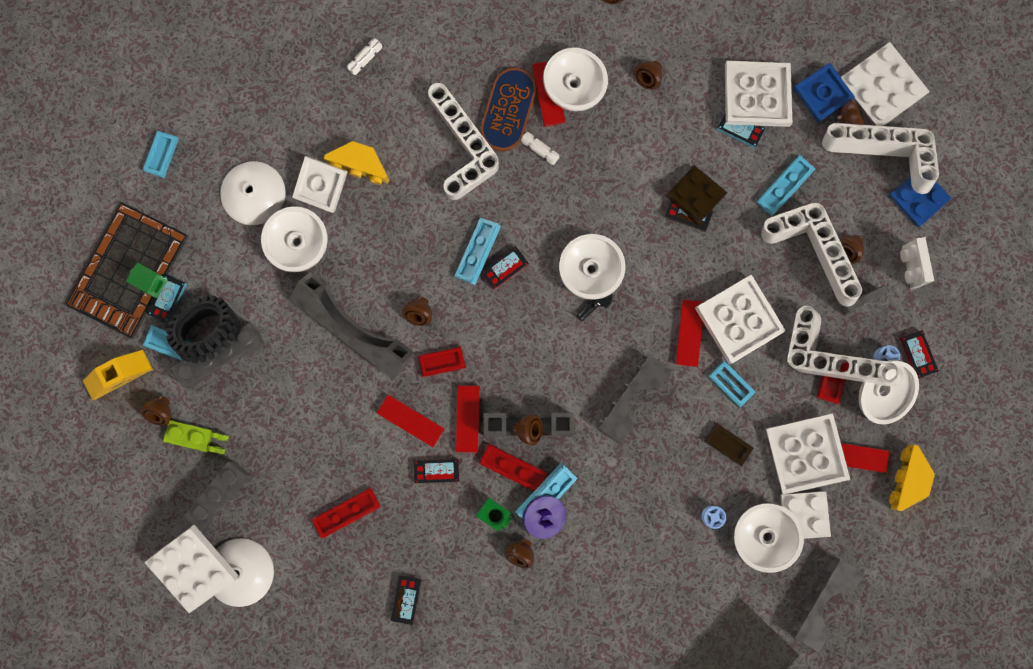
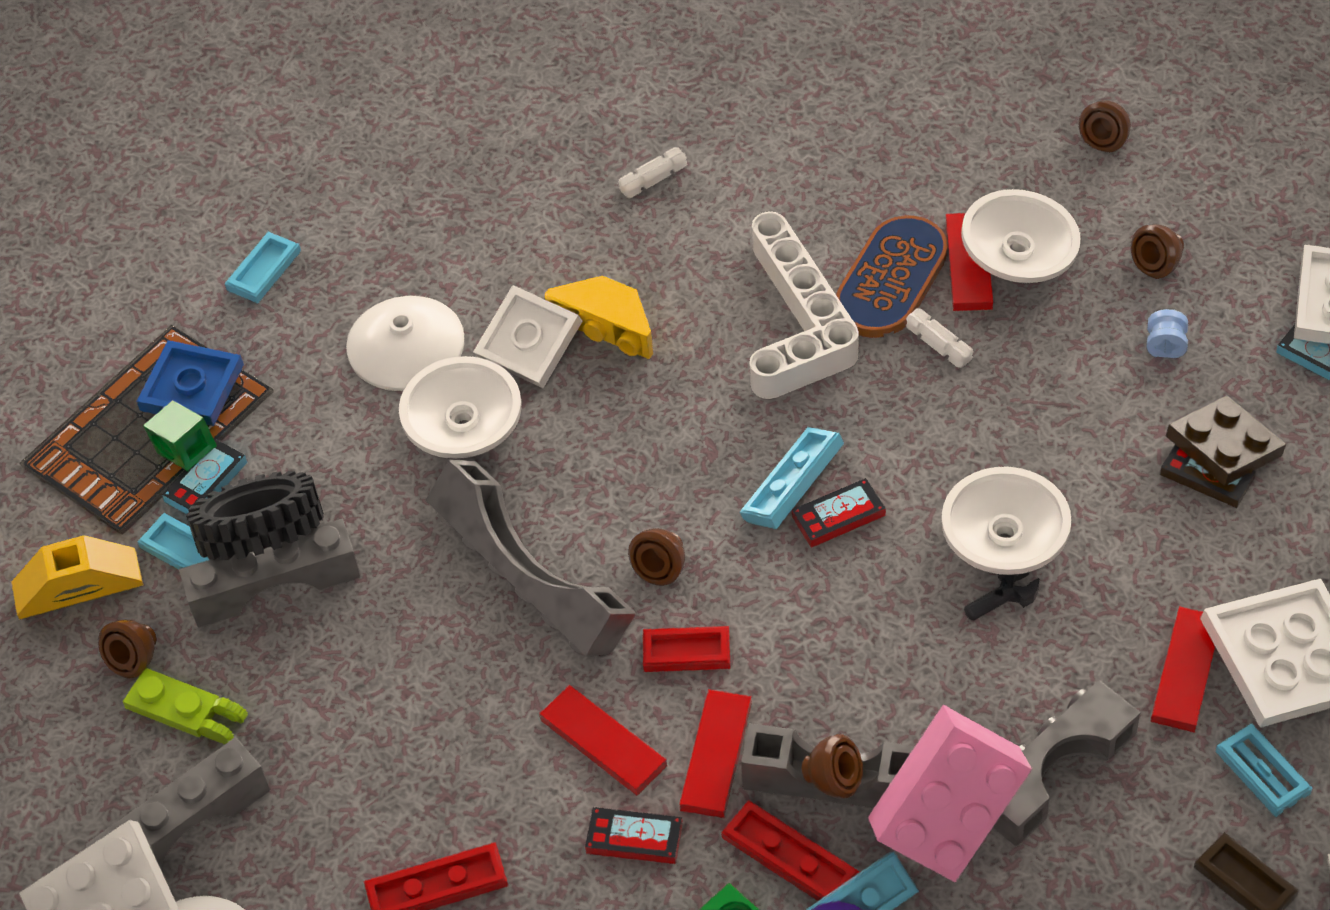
camera: 15 degrees right, 30 degrees down
(142, 242) = (192, 377): none -> blue plate
(588, 440) = (949, 793): none -> bright pink brick
(660, 130) = (1167, 334): none -> light blue wheel

